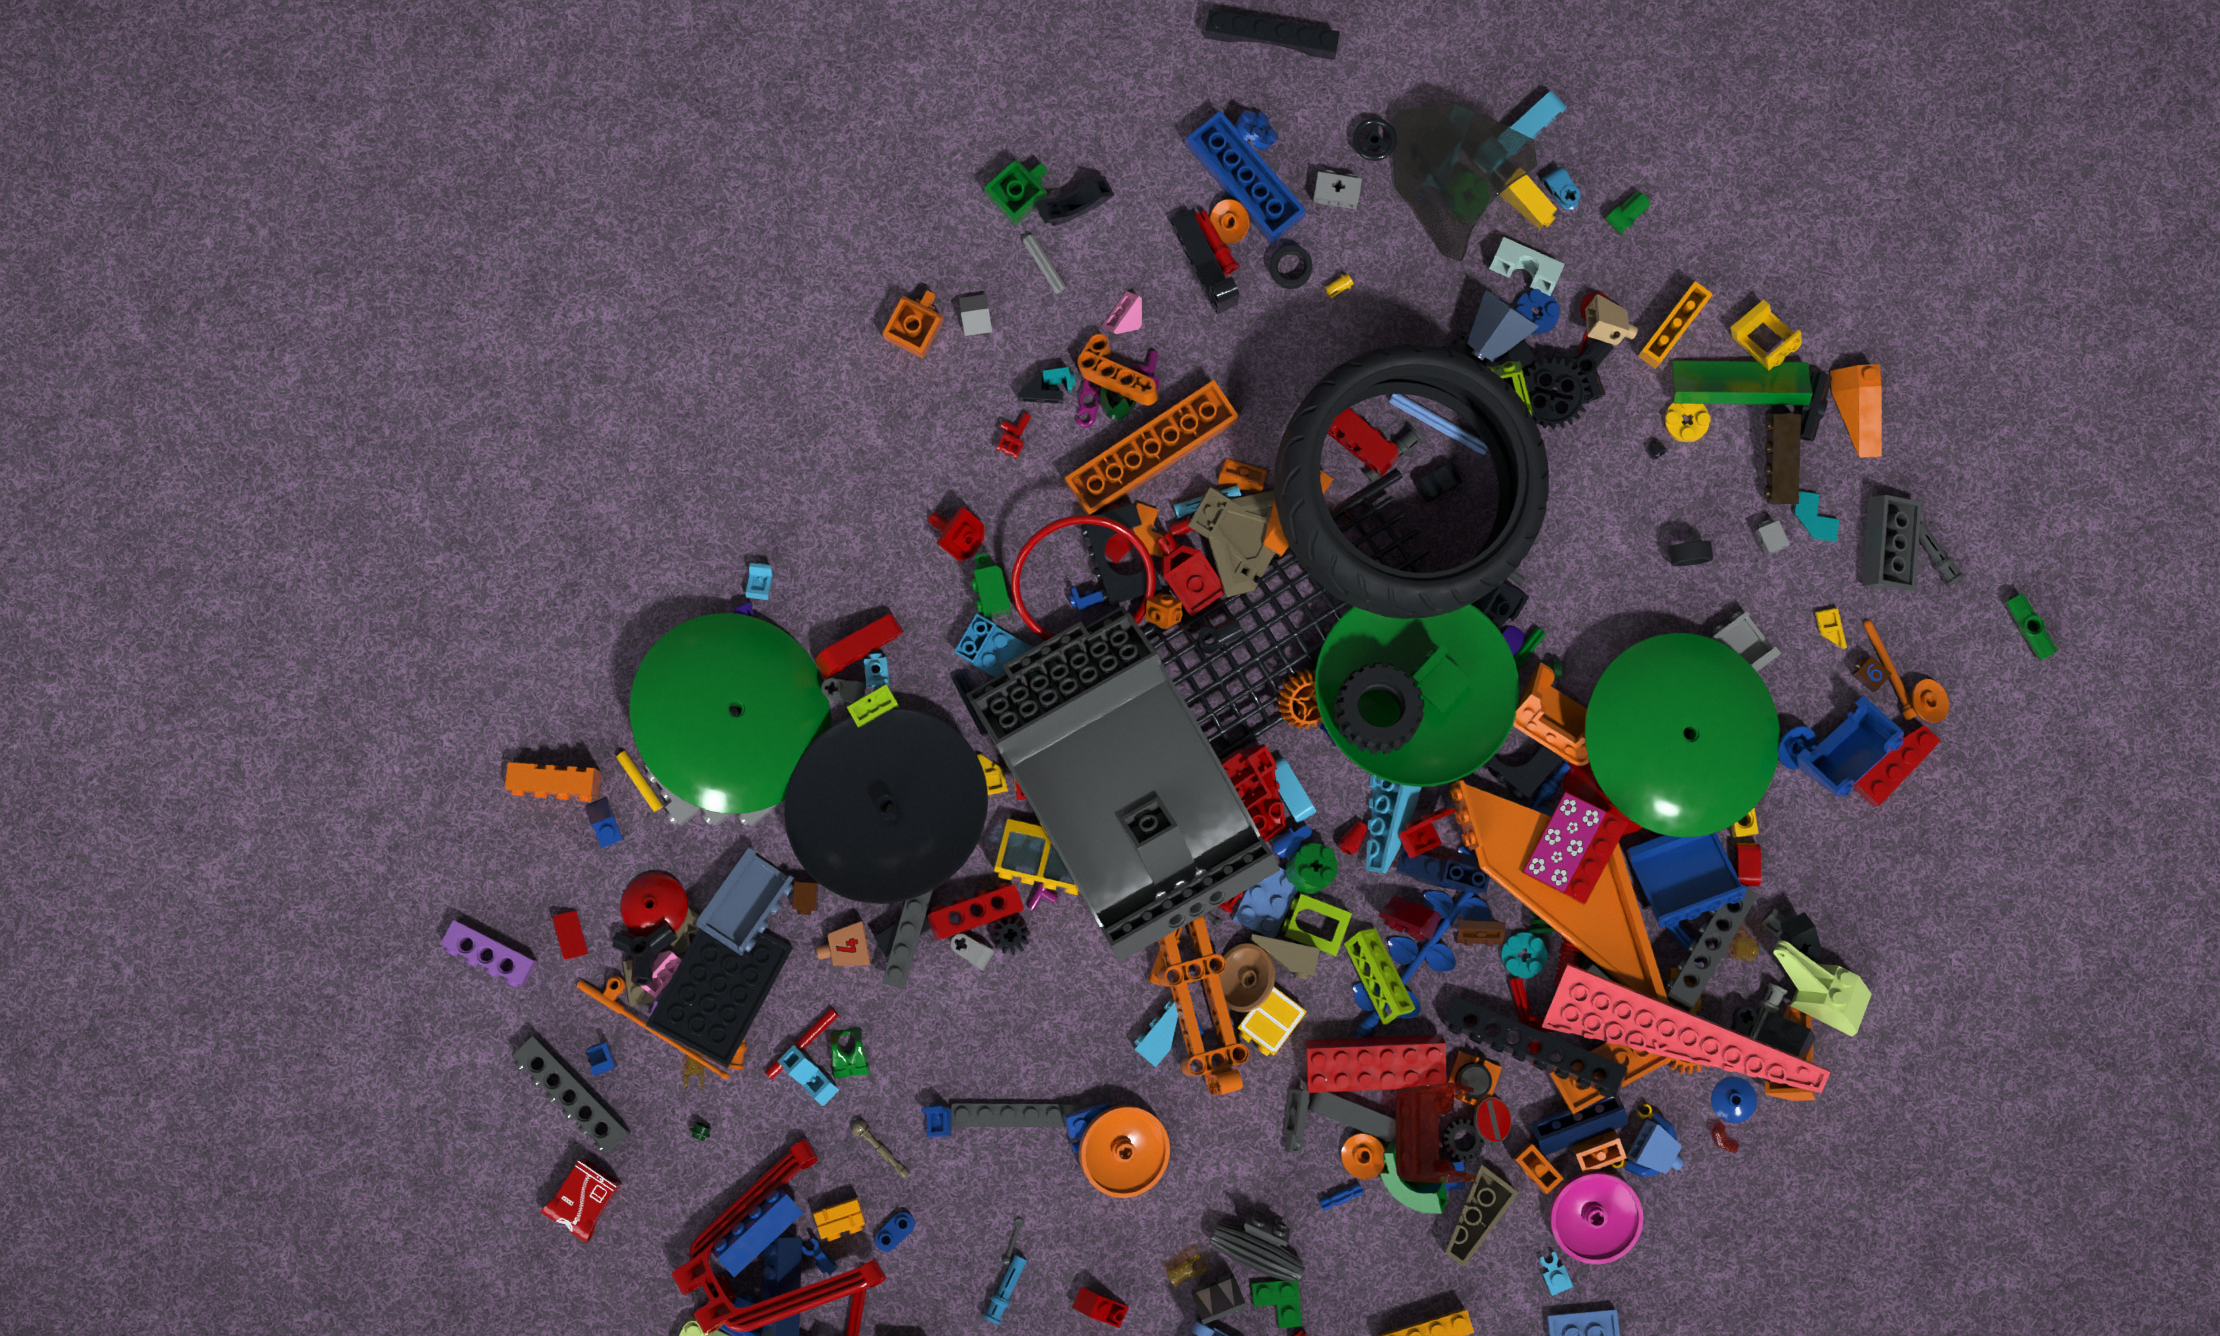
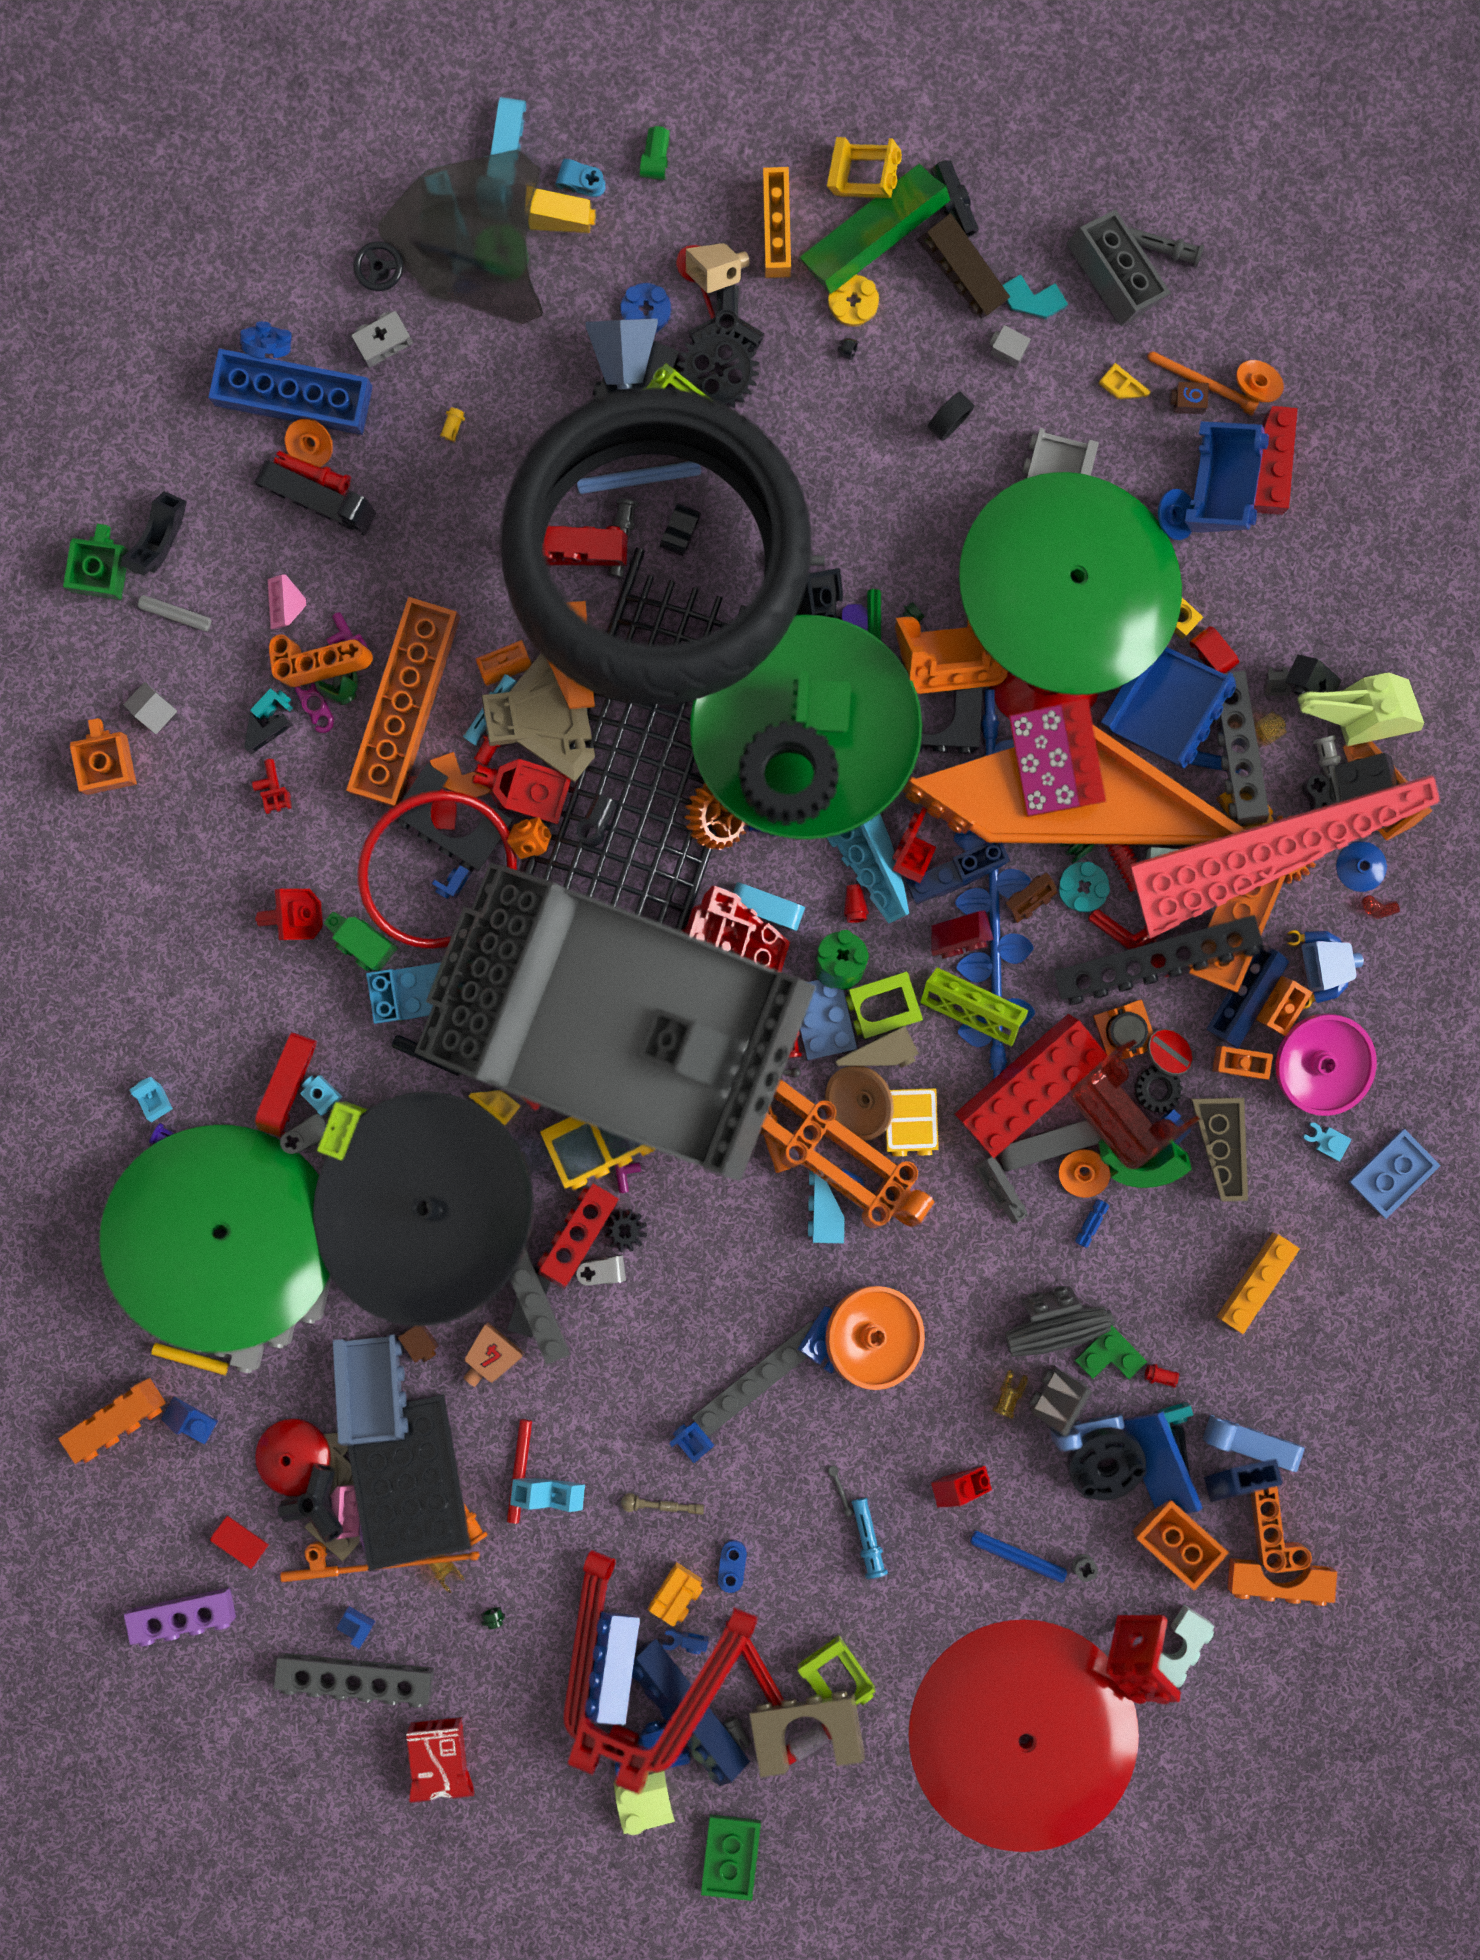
camera: 40 degrees left, 5 degrees up
(852, 1063) = (578, 1450): green piece -> none
(1243, 28) = (240, 225): black arch -> none
(1290, 841) = (802, 952): blue arm -> none
(1293, 250) = (396, 421): black tyre -> none
(1513, 256) = (621, 265): light aqua arch -> none
(1859, 400) = (990, 162): orange wedge -> none
(2038, 640) = (1280, 240): green piece -> none

